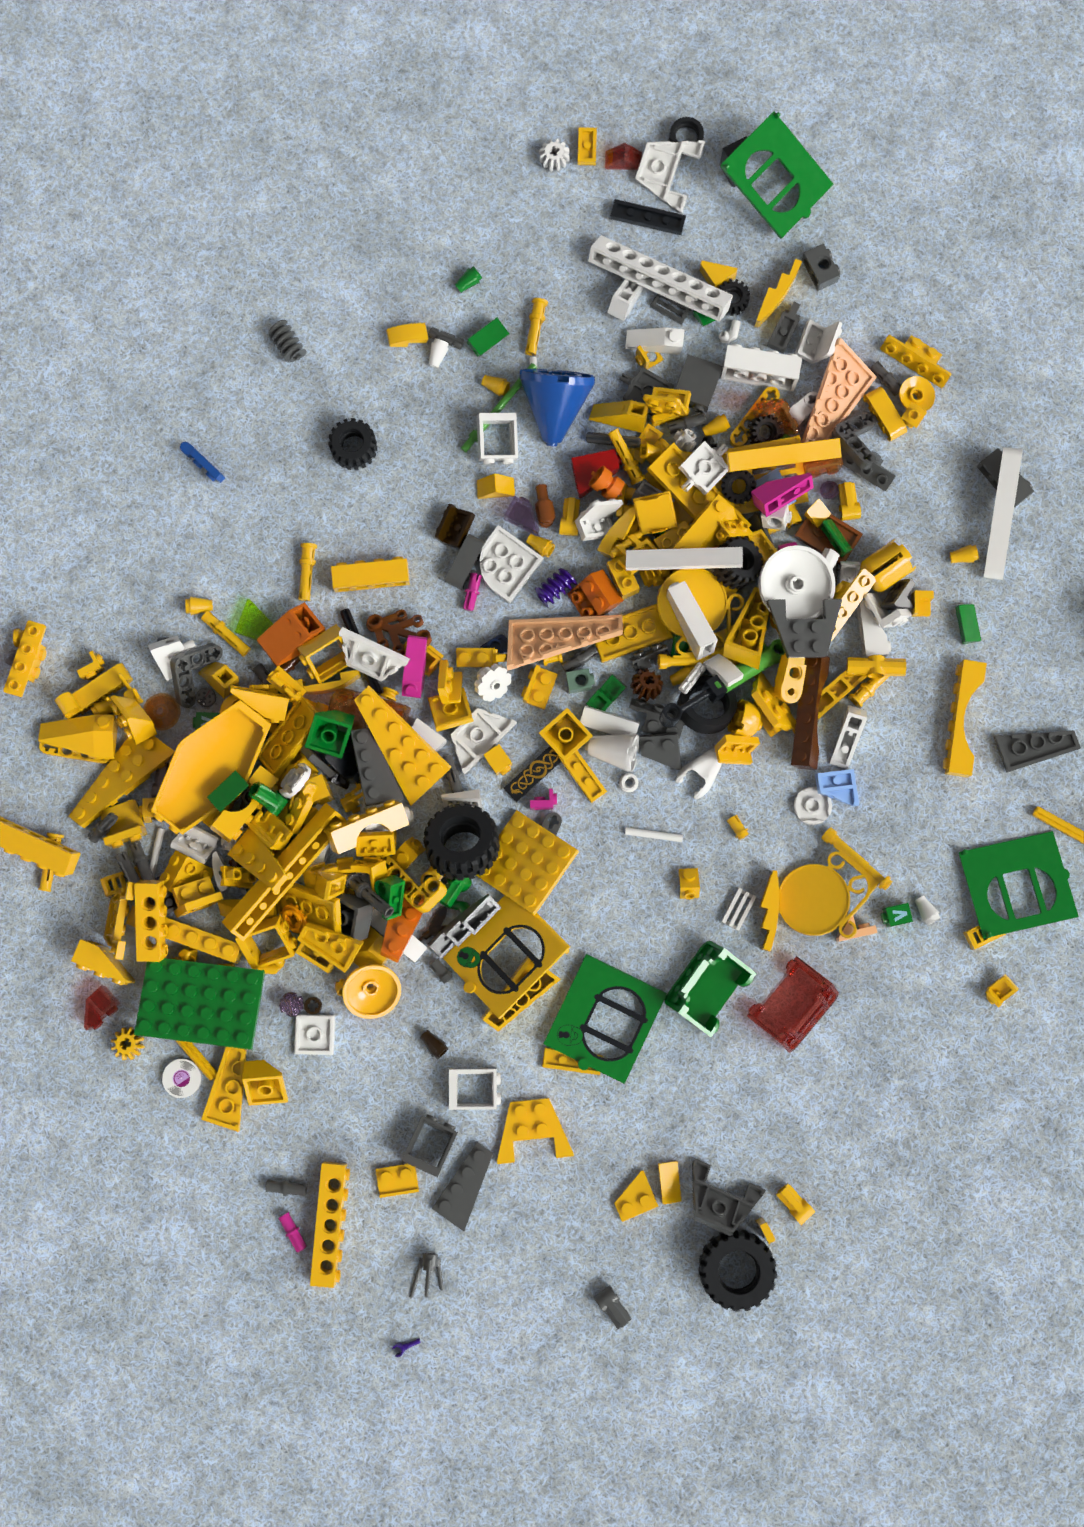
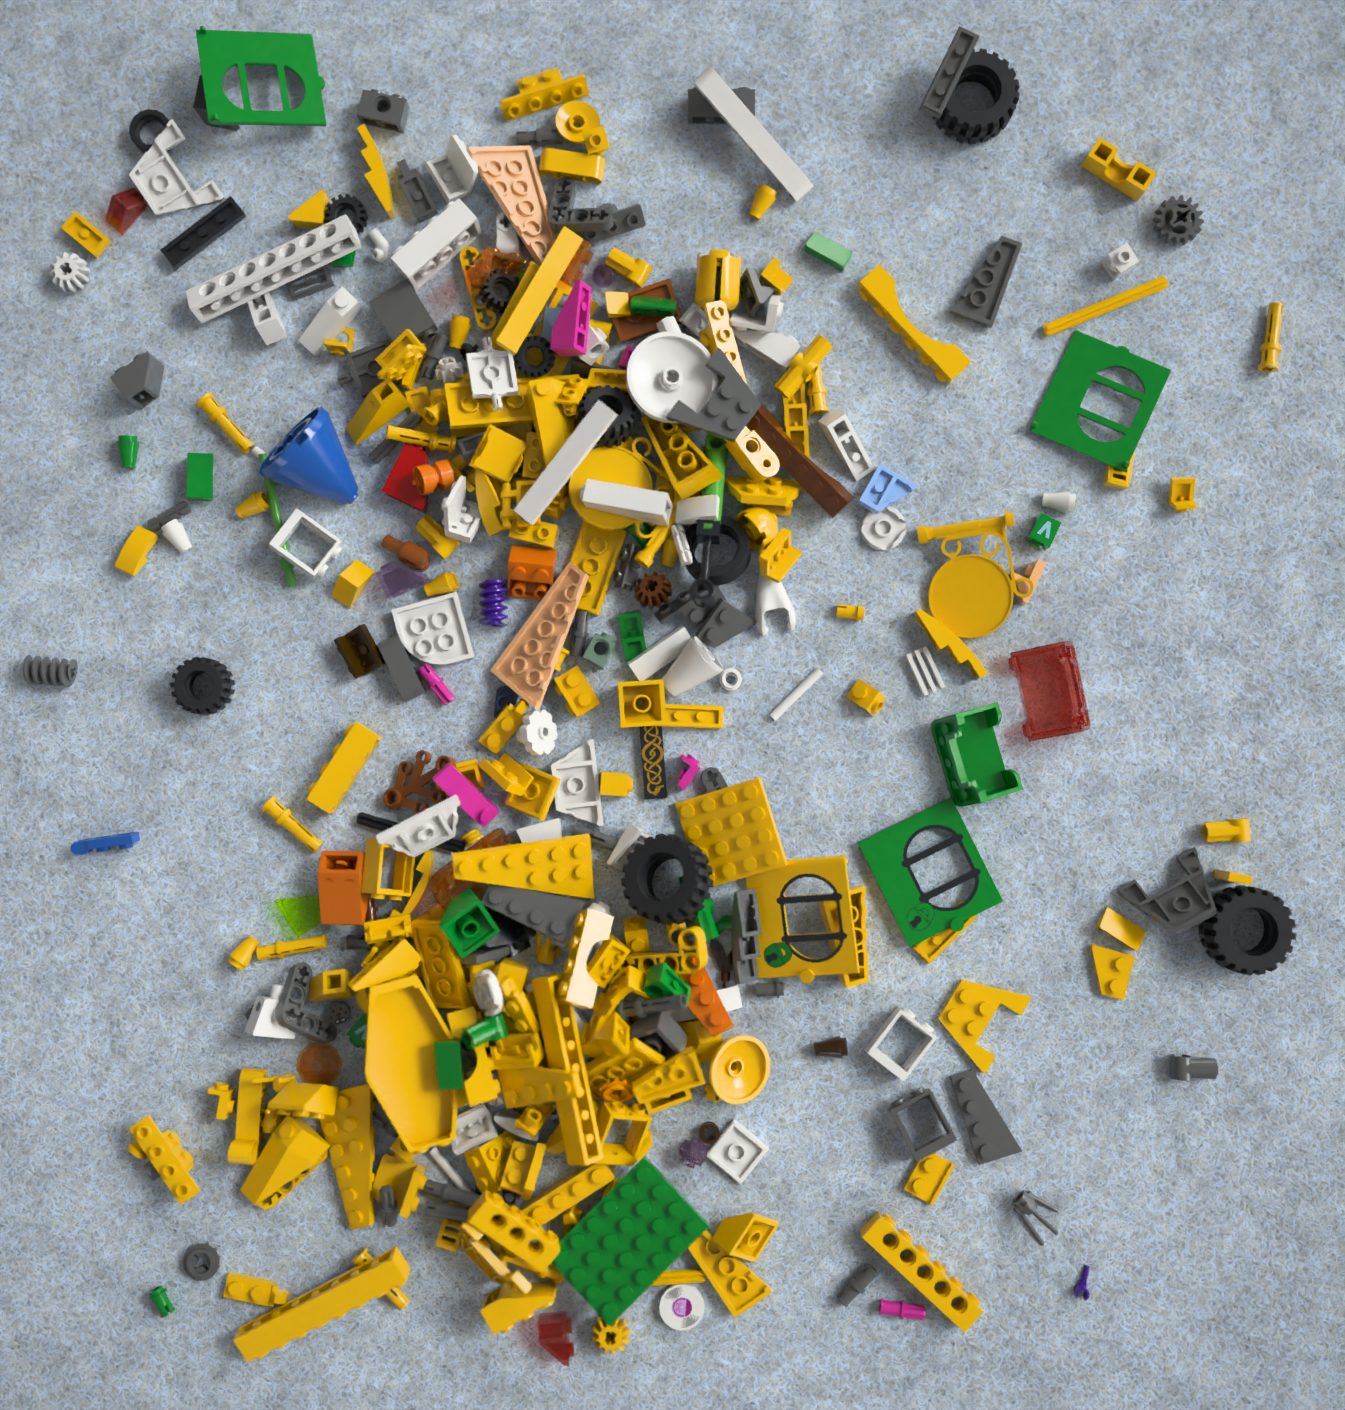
camera: 55 degrees left, 5 degrees up
(138, 966) = (550, 1272): none -> yellow pin
(520, 251) = (140, 379): none -> dark grey slope

